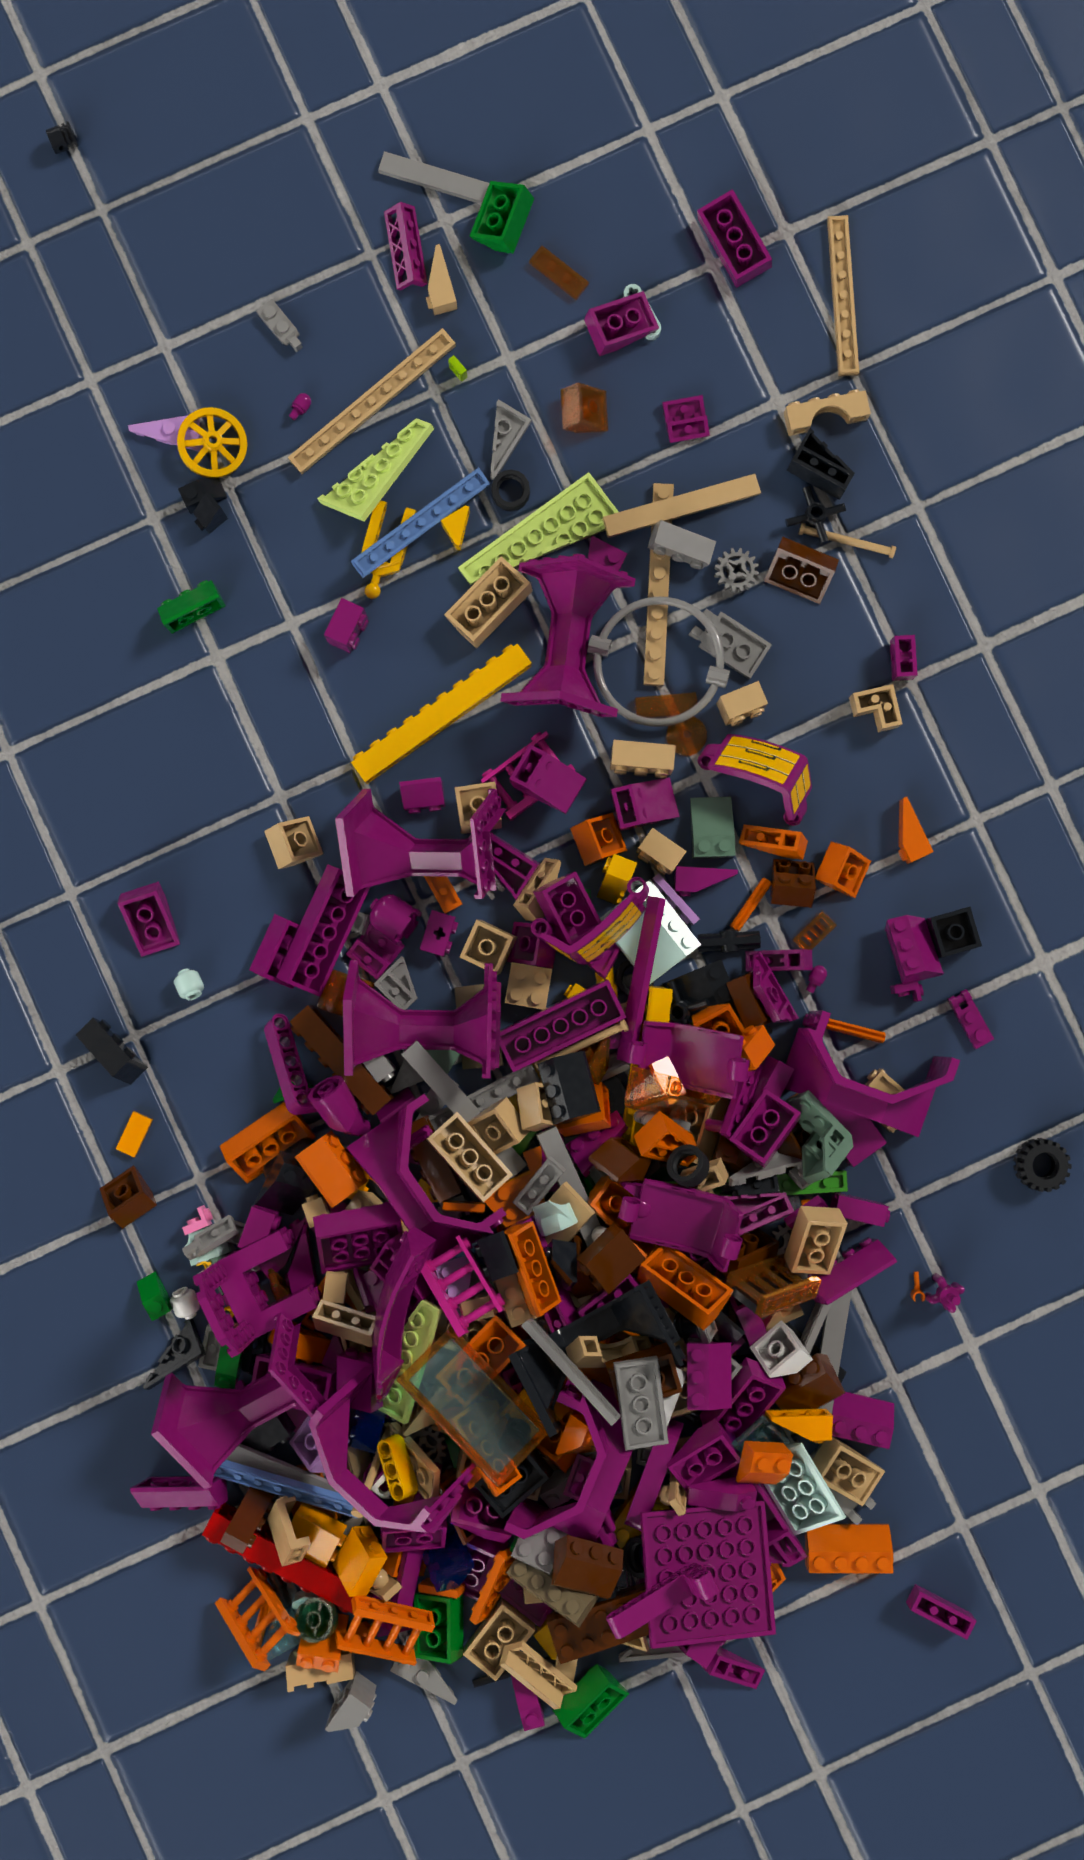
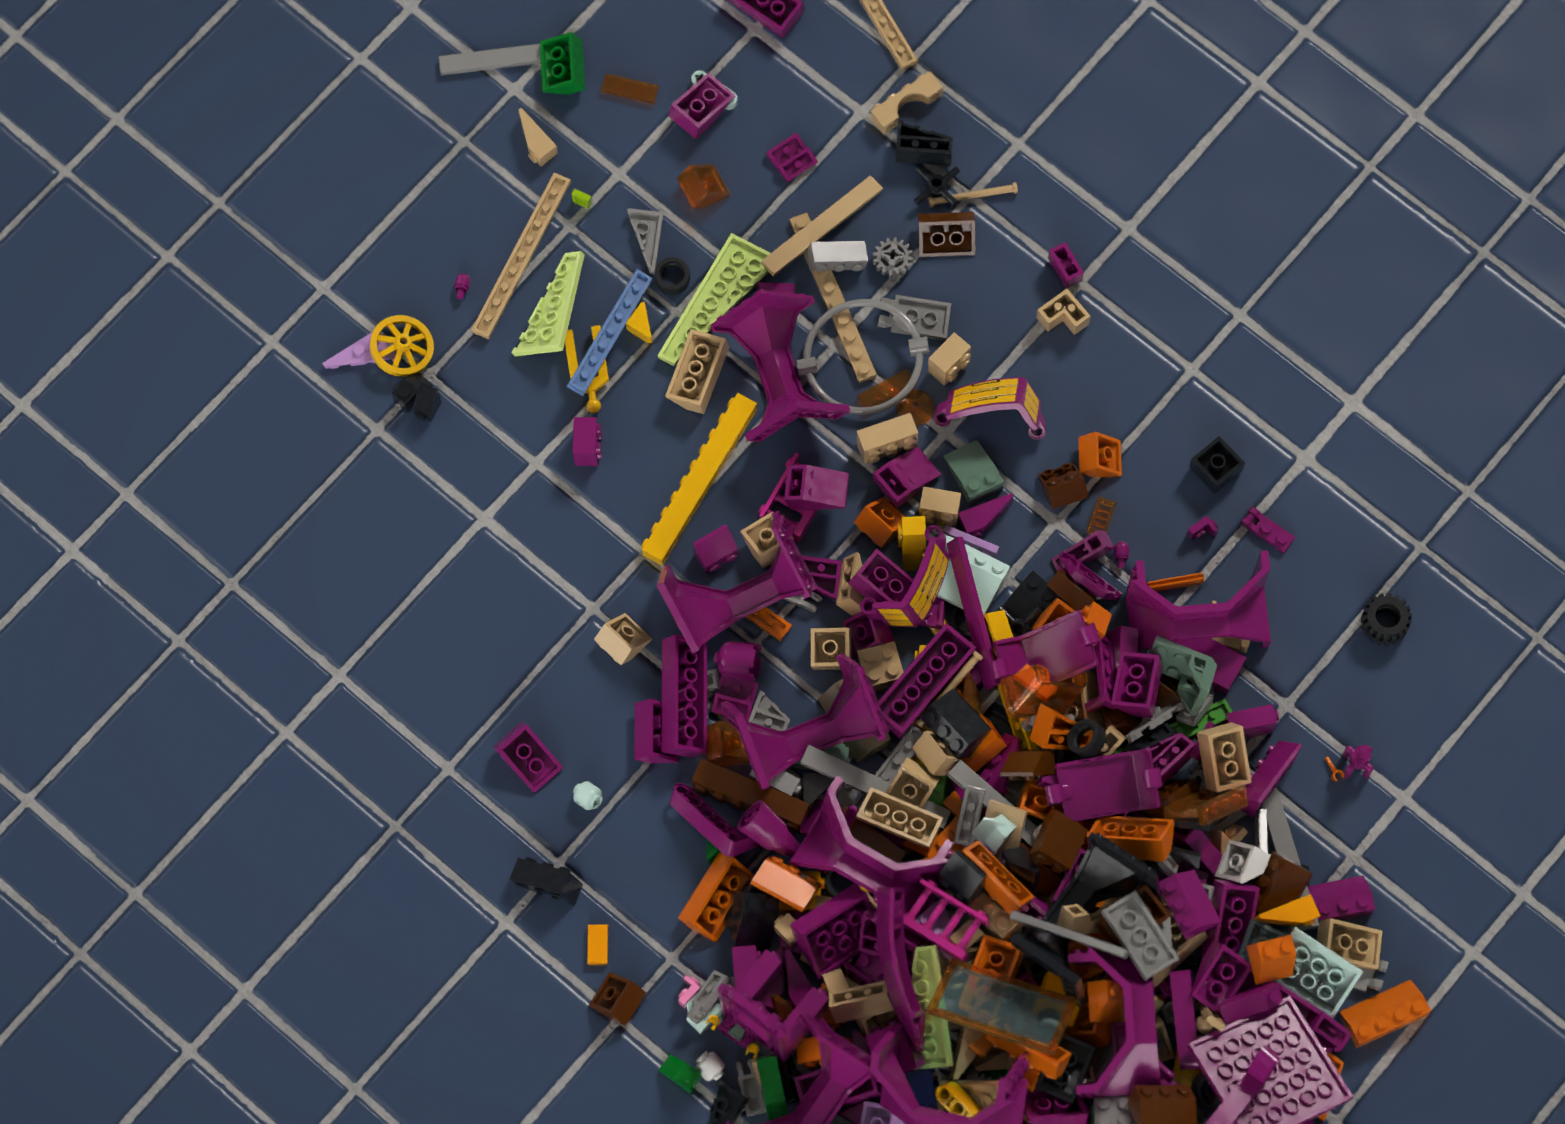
camera: 20 degrees left, 15 degrees down
(62, 137) = (161, 159): black piece -> none
(190, 606) = (445, 484): green slope -> none
(280, 325) = (414, 229): light grey hinge -> none
(409, 243) = (493, 118): magenta fence -> none
(436, 921) = (783, 647): magenta brick -> none
(729, 941) = (1033, 556): black piece -> none
(750, 904) = (1036, 519): orange axle -> none
(774, 841) = (1031, 458): orange slope -> none
(912, 839) = (1145, 405): orange slope -> none
(912, 948) = (1189, 492): magenta slope -> none
(941, 1611) = (1489, 1027): magenta brick -> none

